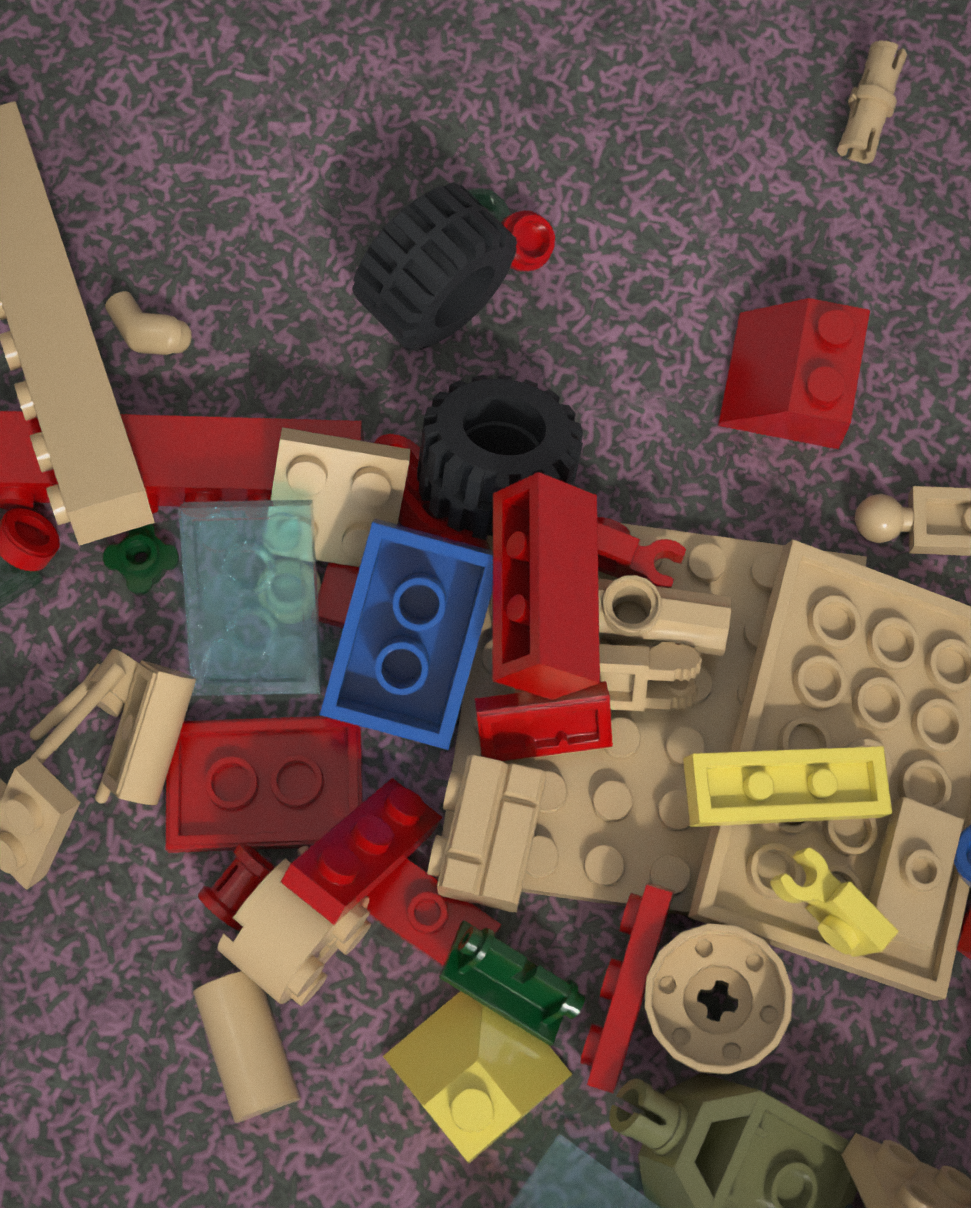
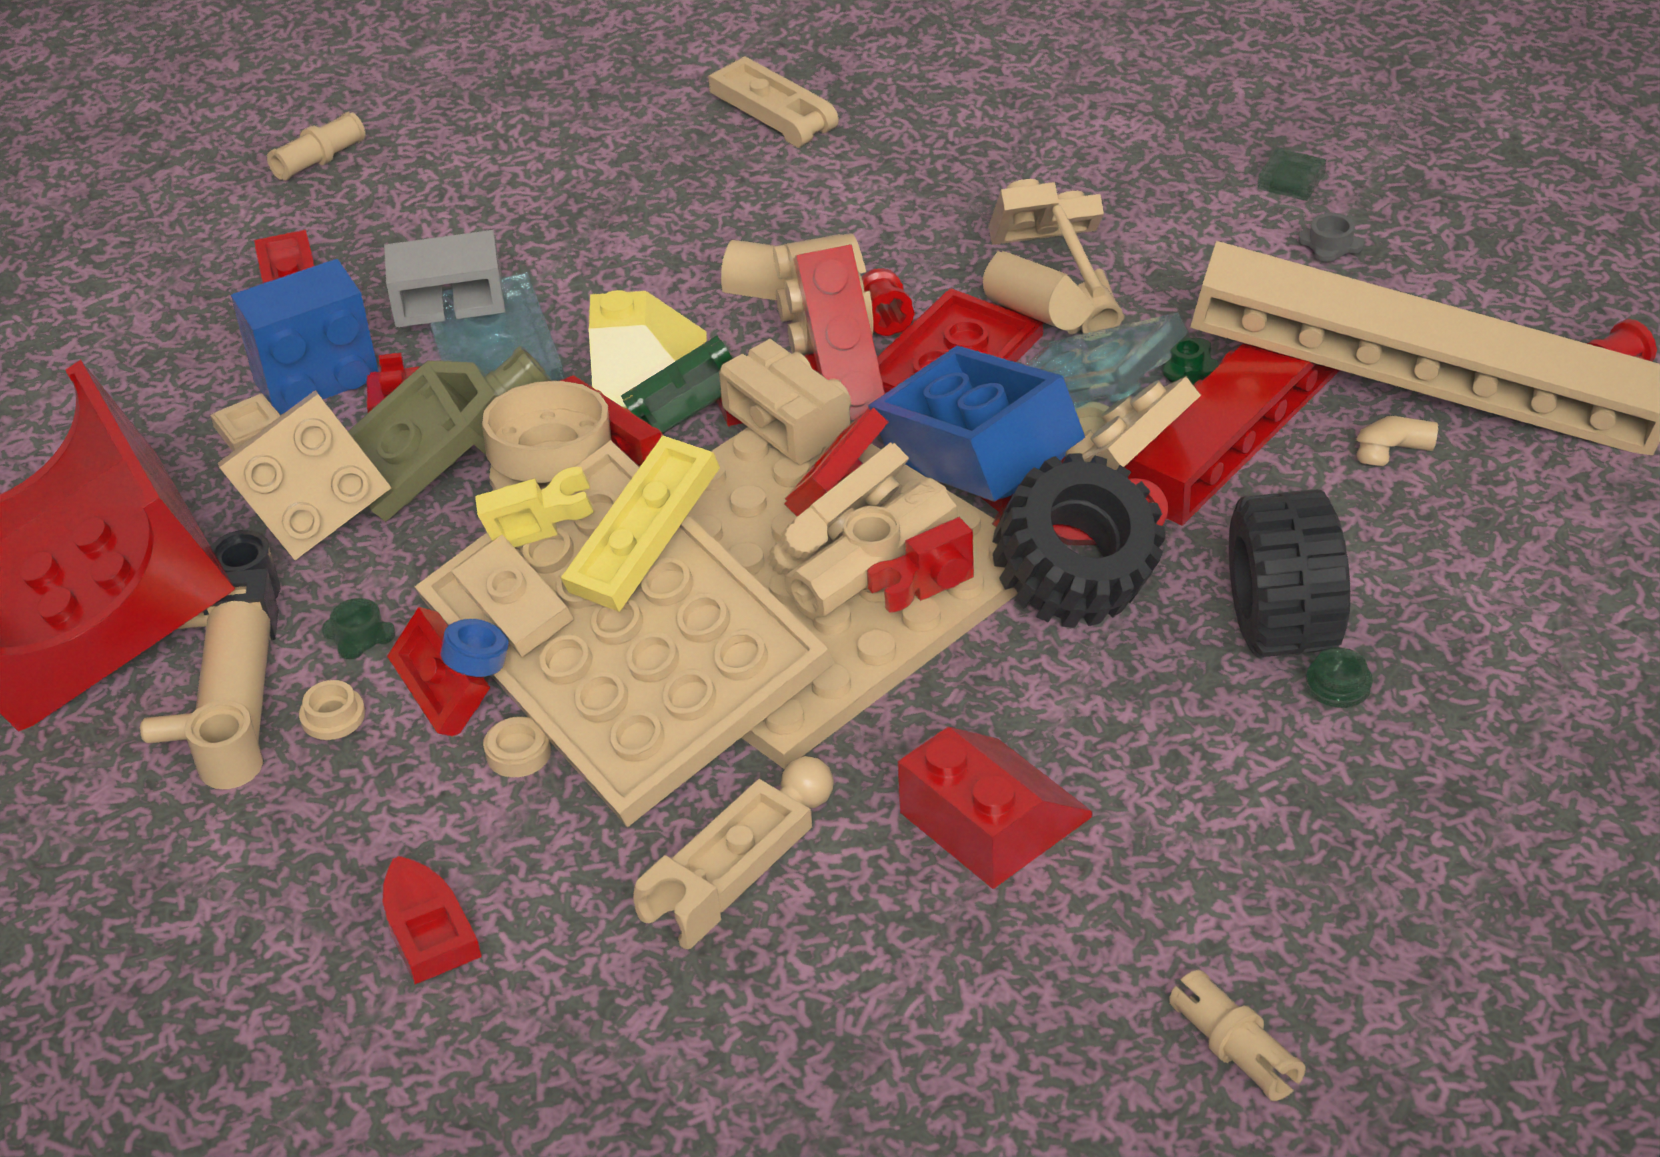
camera: 130 degrees right, 30 degrees down
(533, 237) = (1286, 690): red plate -> none
(545, 587) = (919, 446): red brick -> none

